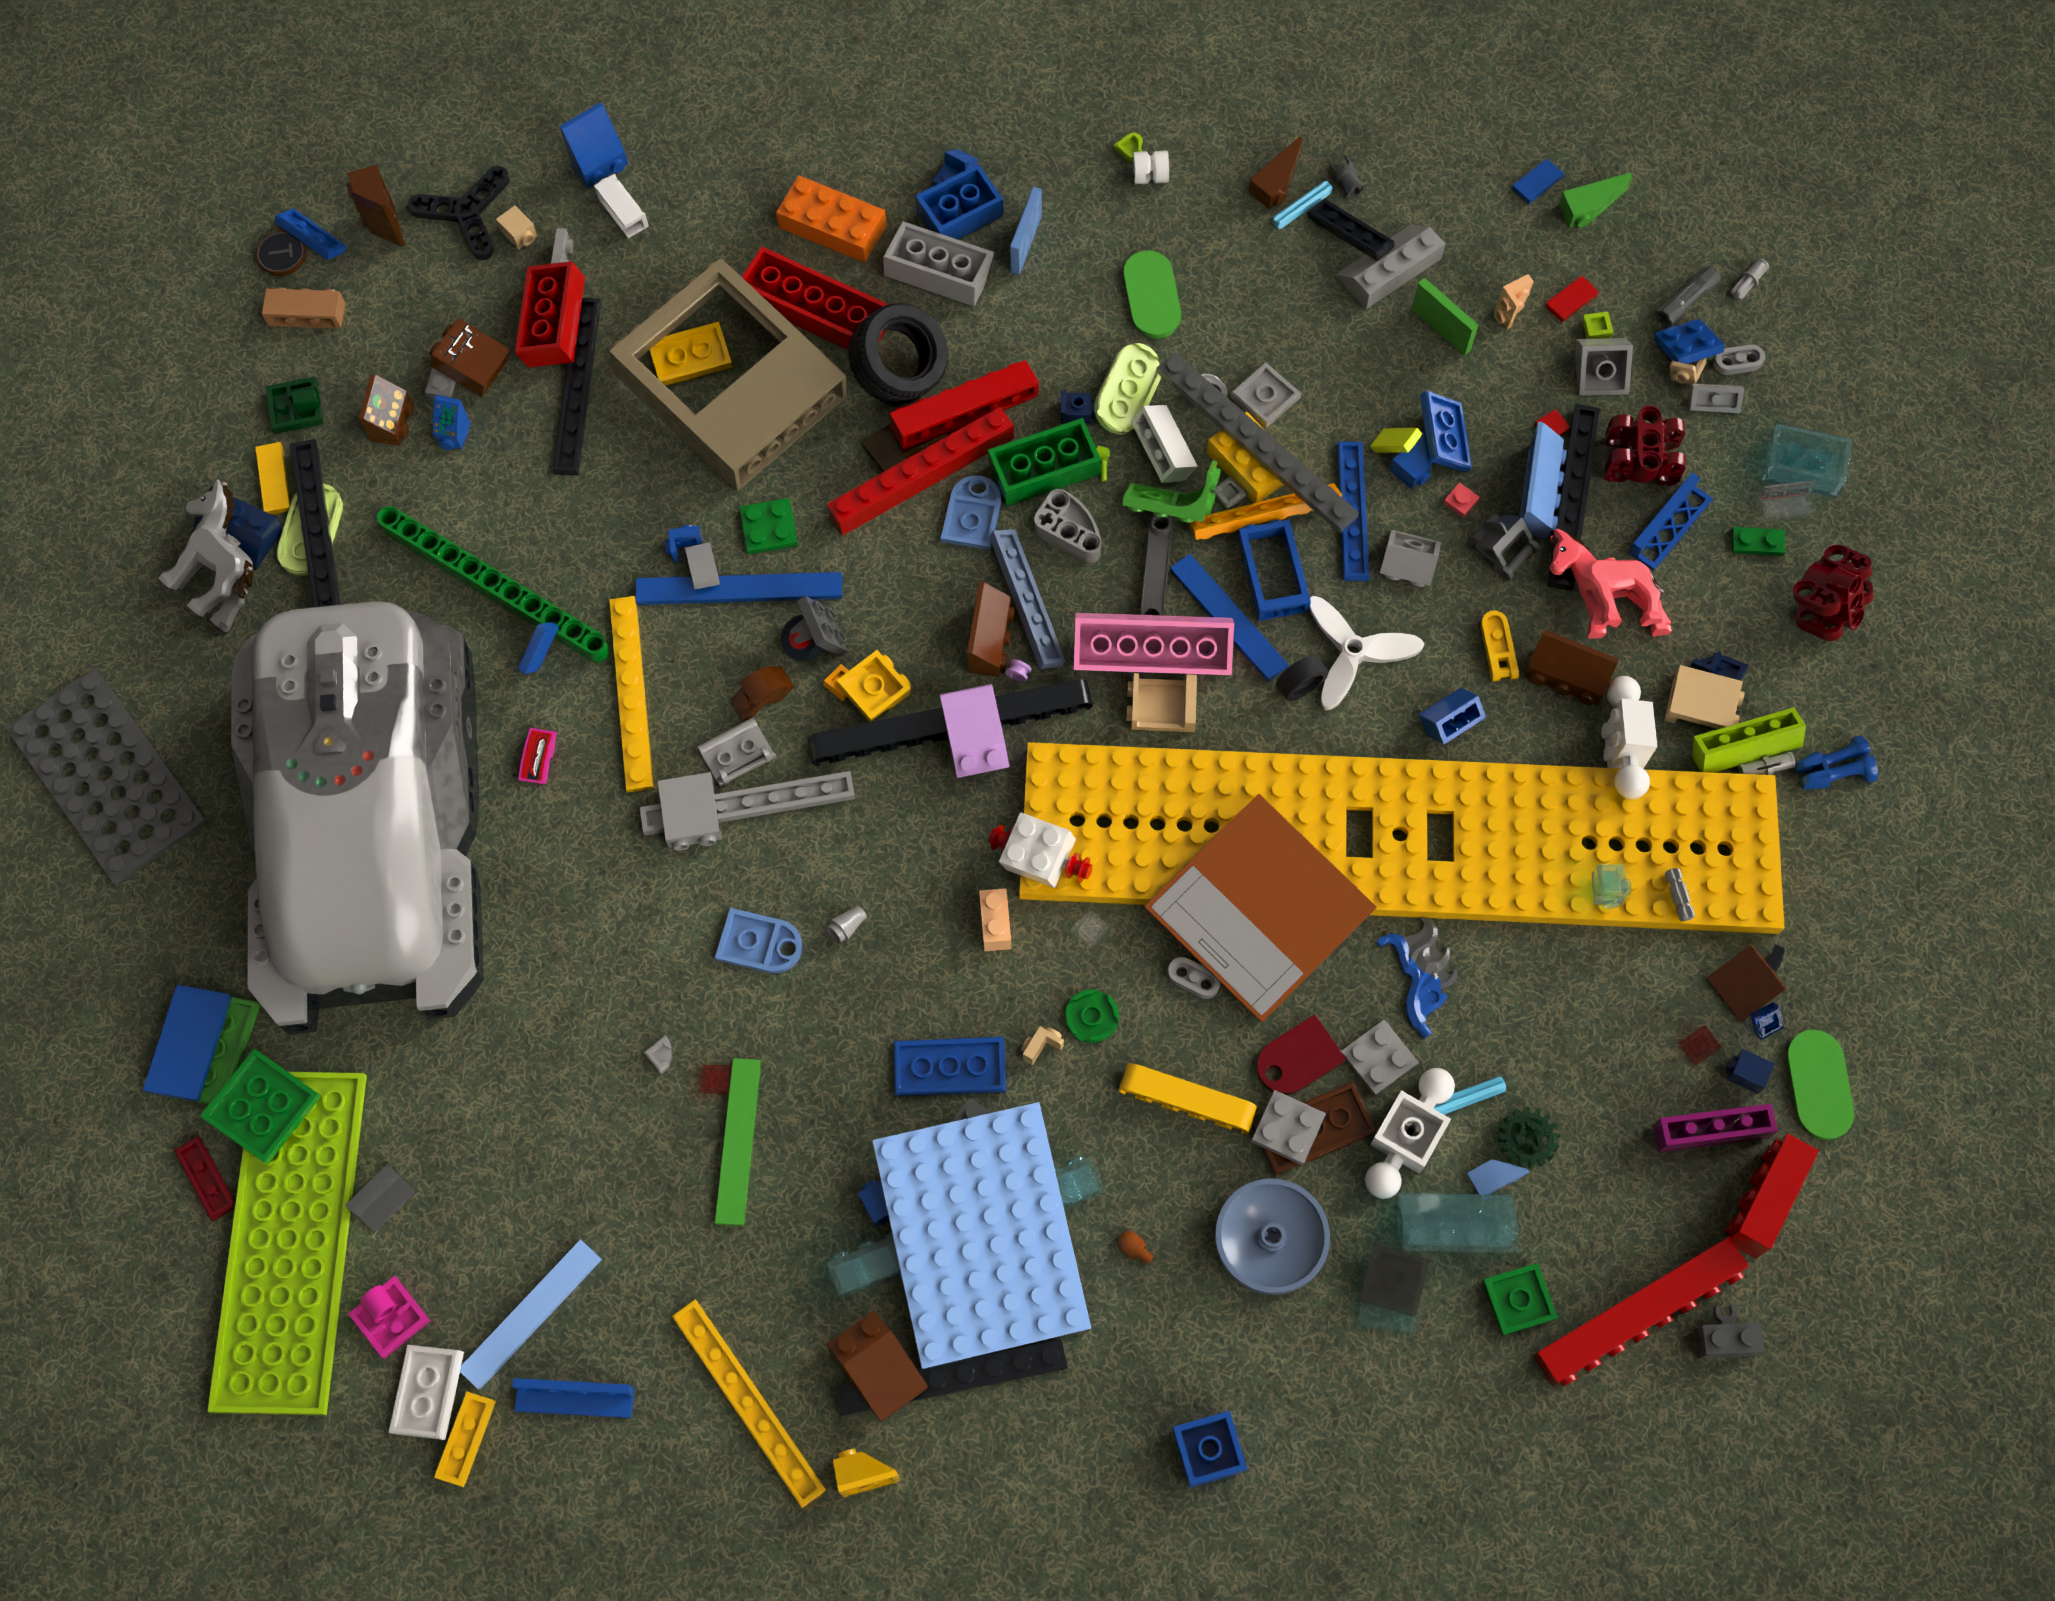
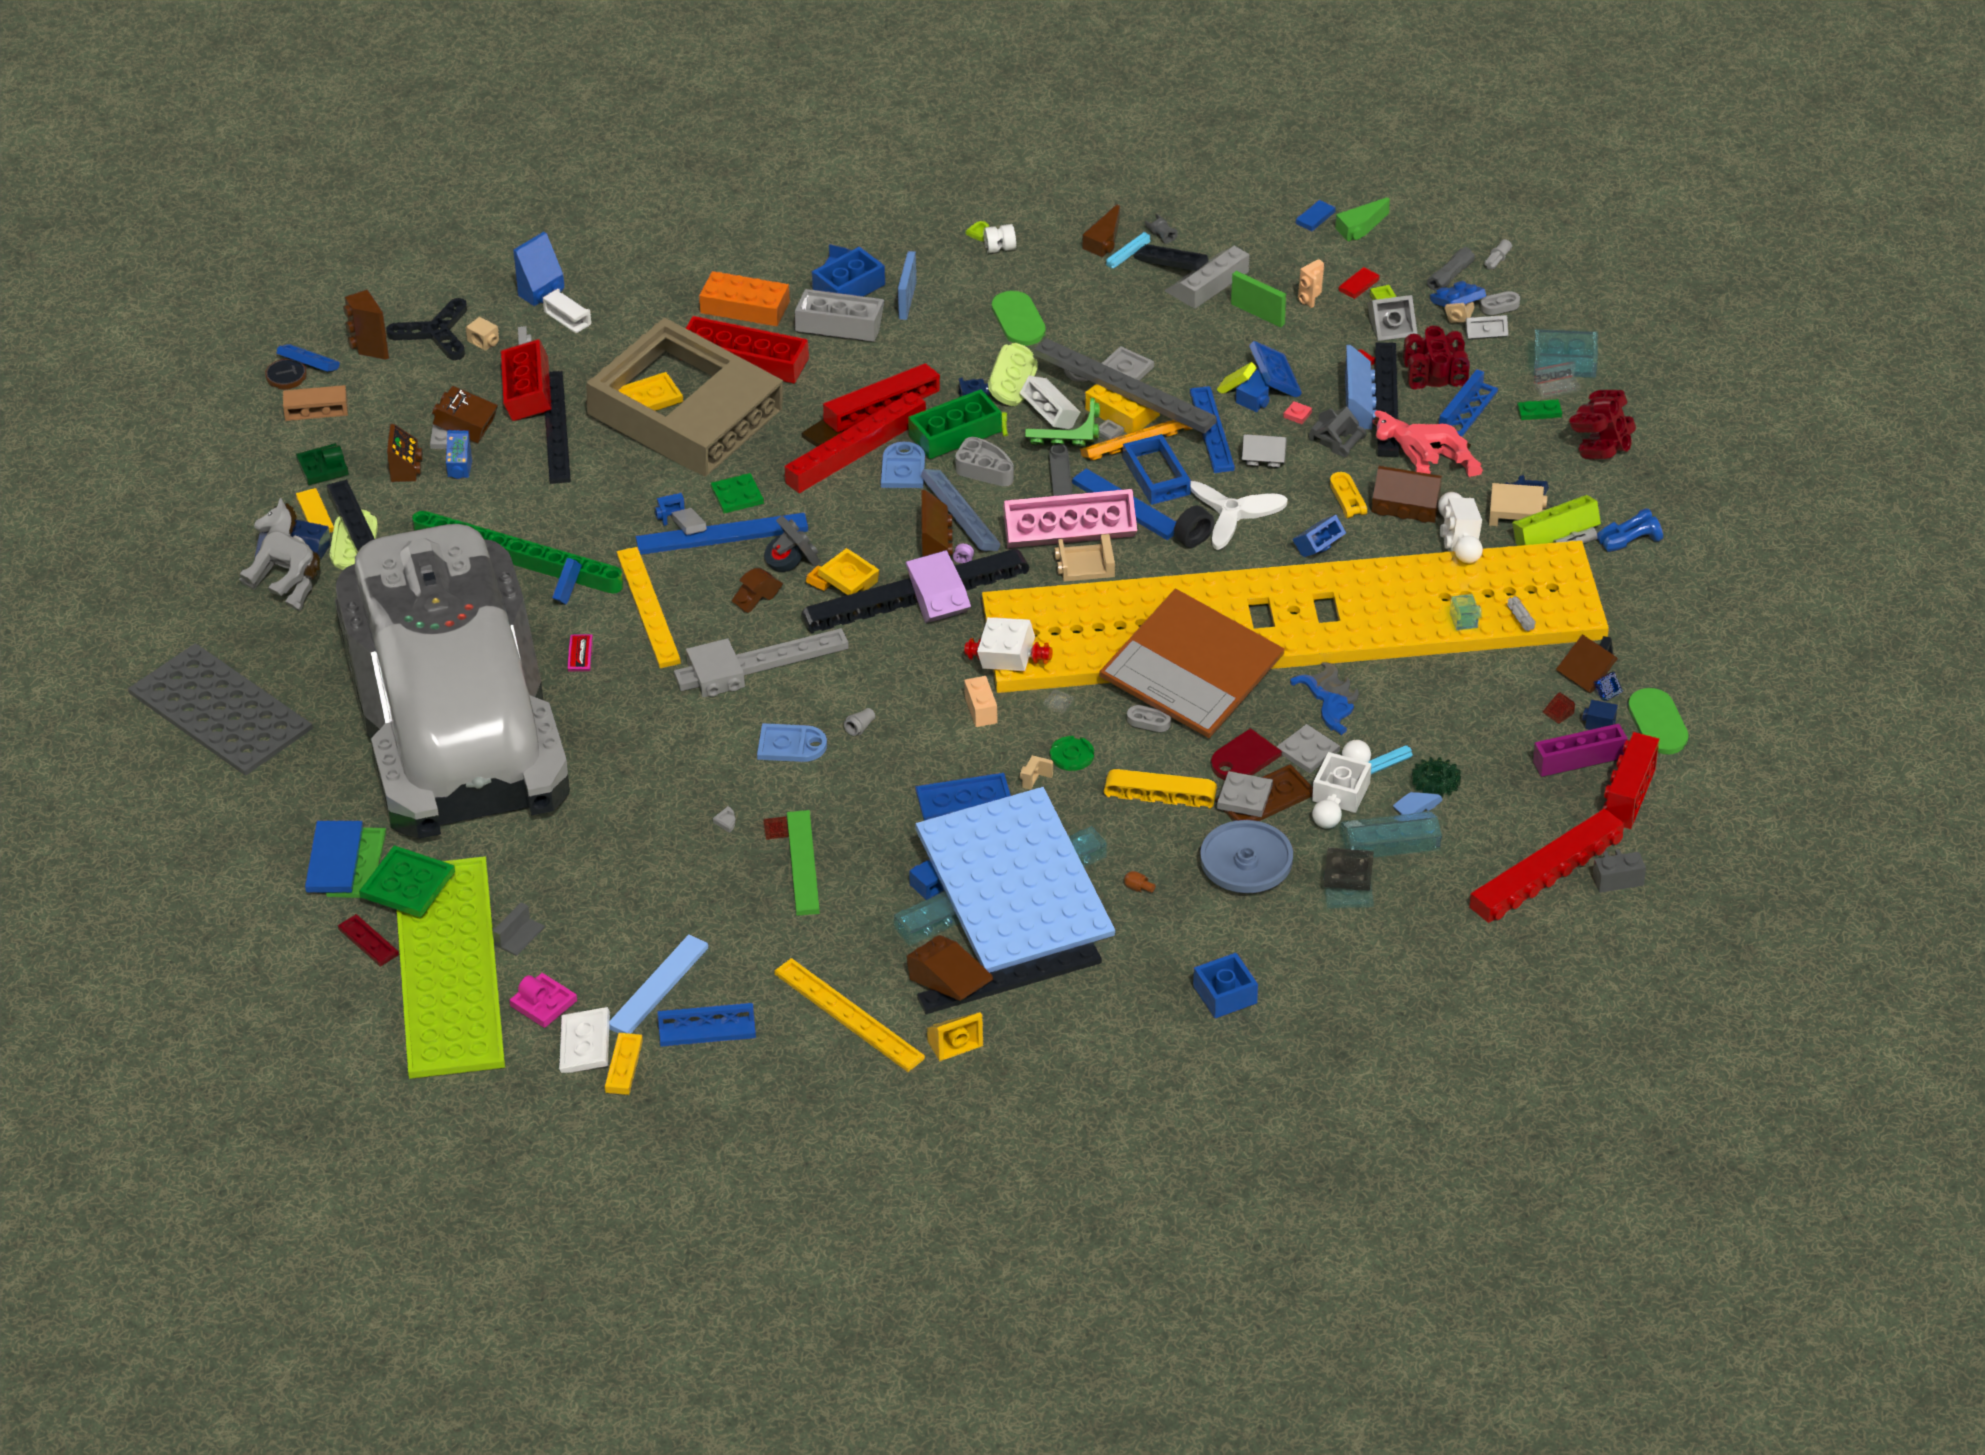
camera: 10 degrees left, 25 degrees down
(736, 752) = (745, 631): light grey piece -> none
(922, 332) = (835, 351): black tyre -> none
(1519, 1299) = (1450, 872): green plate -> none

